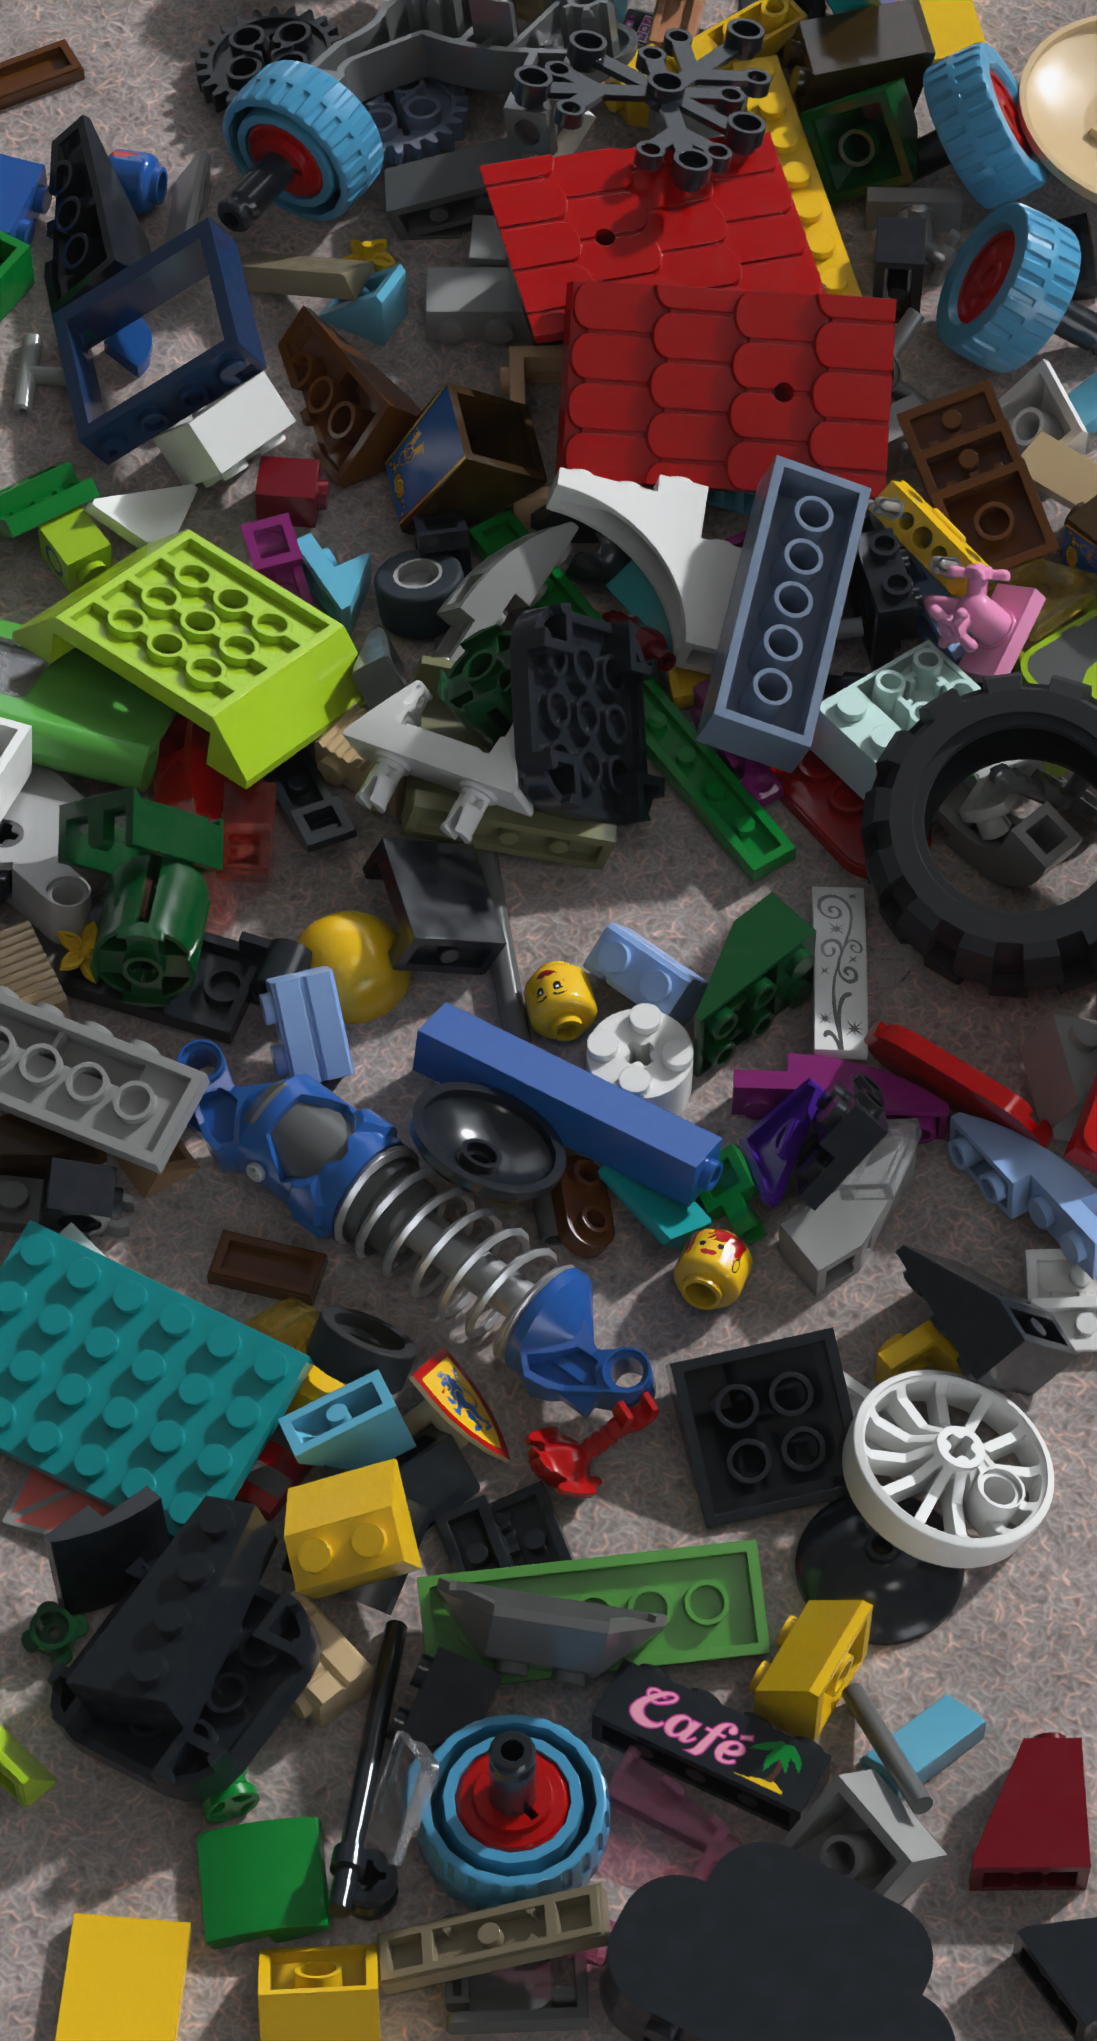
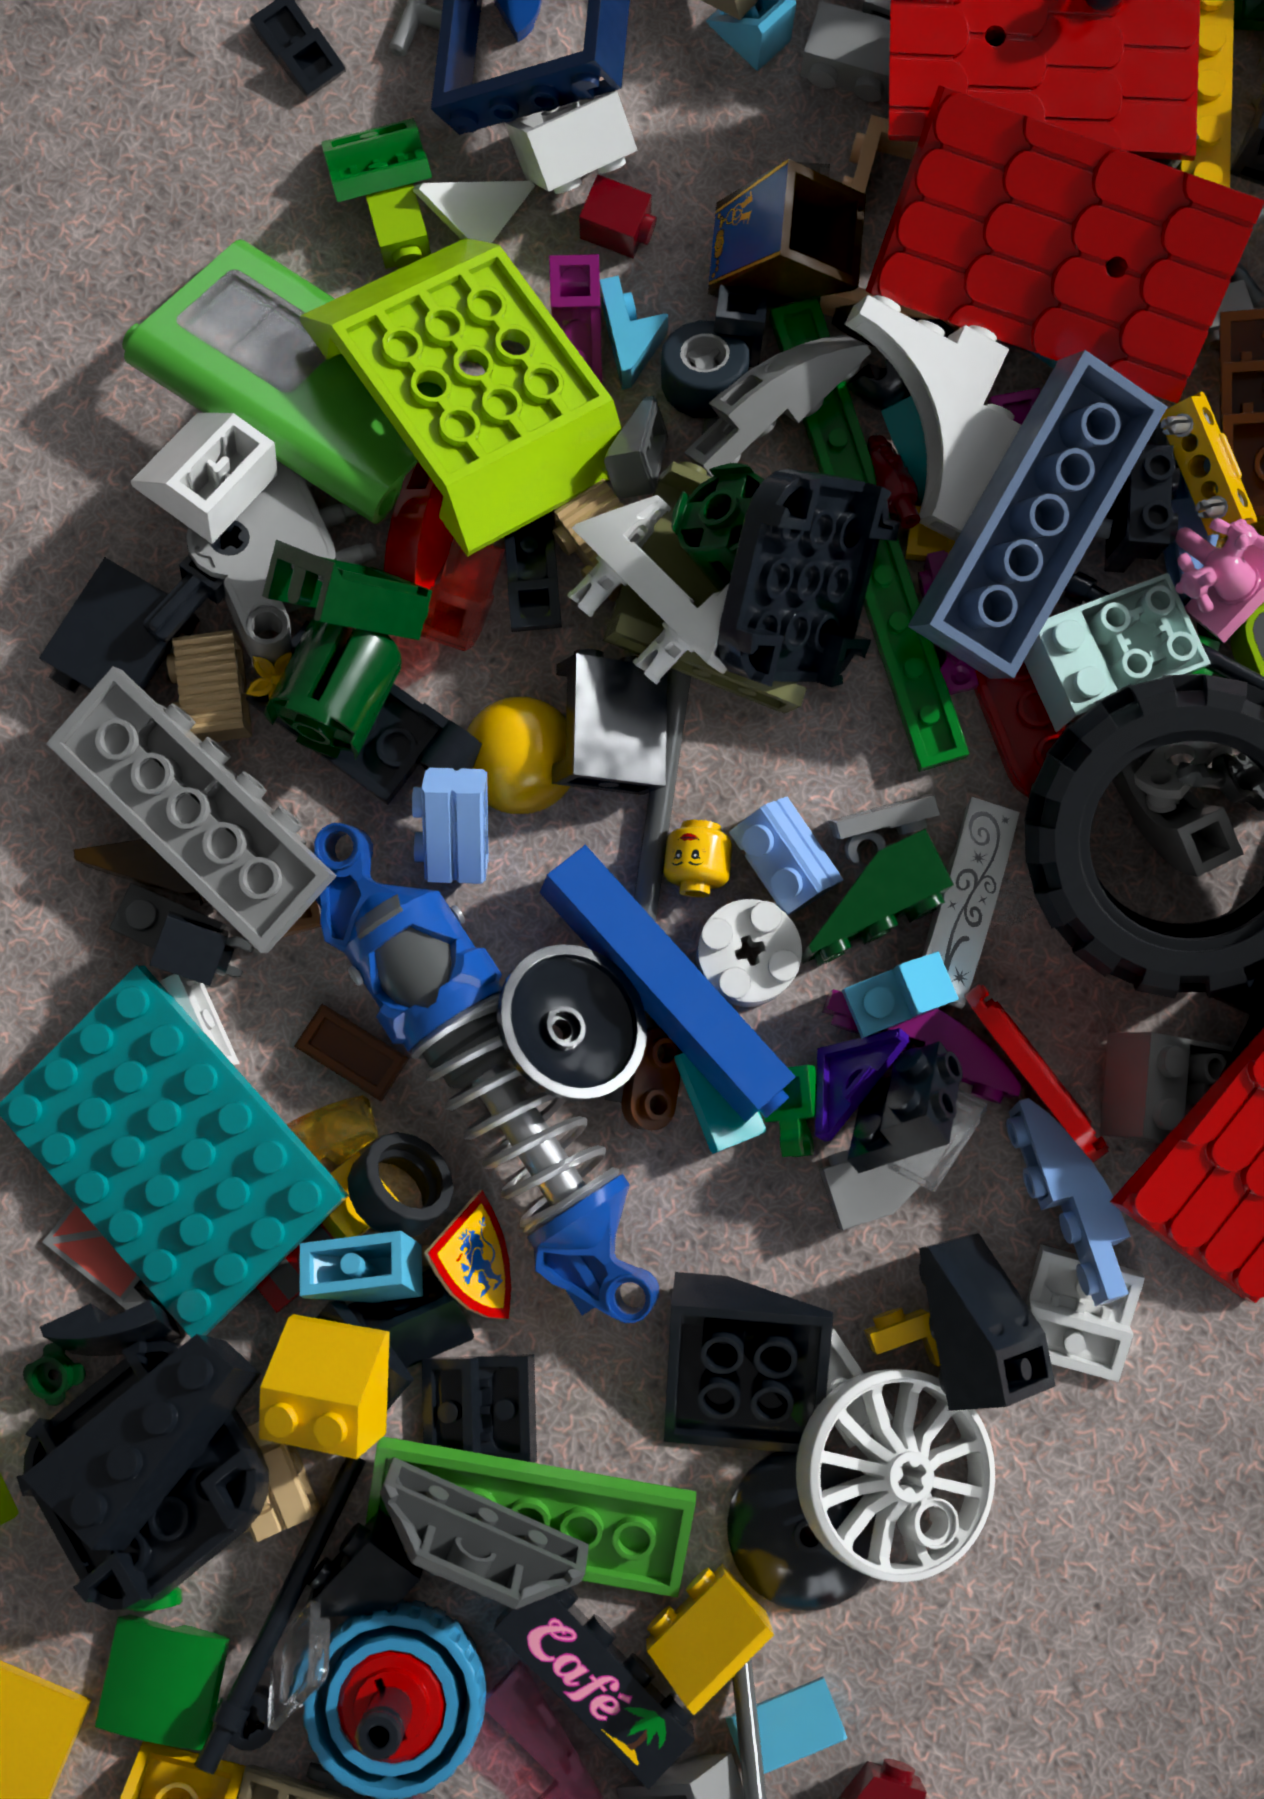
camera: 15 degrees right, 25 degrees up
(347, 400) = (704, 127): reddish brown wedge -> none
(566, 1463) = (554, 1343): red piece -> none
(712, 931) = (905, 815): none -> light grey plate
(712, 1269) = (750, 1185): yellow head -> none
(801, 1051) = (900, 994): none -> medium azure slope

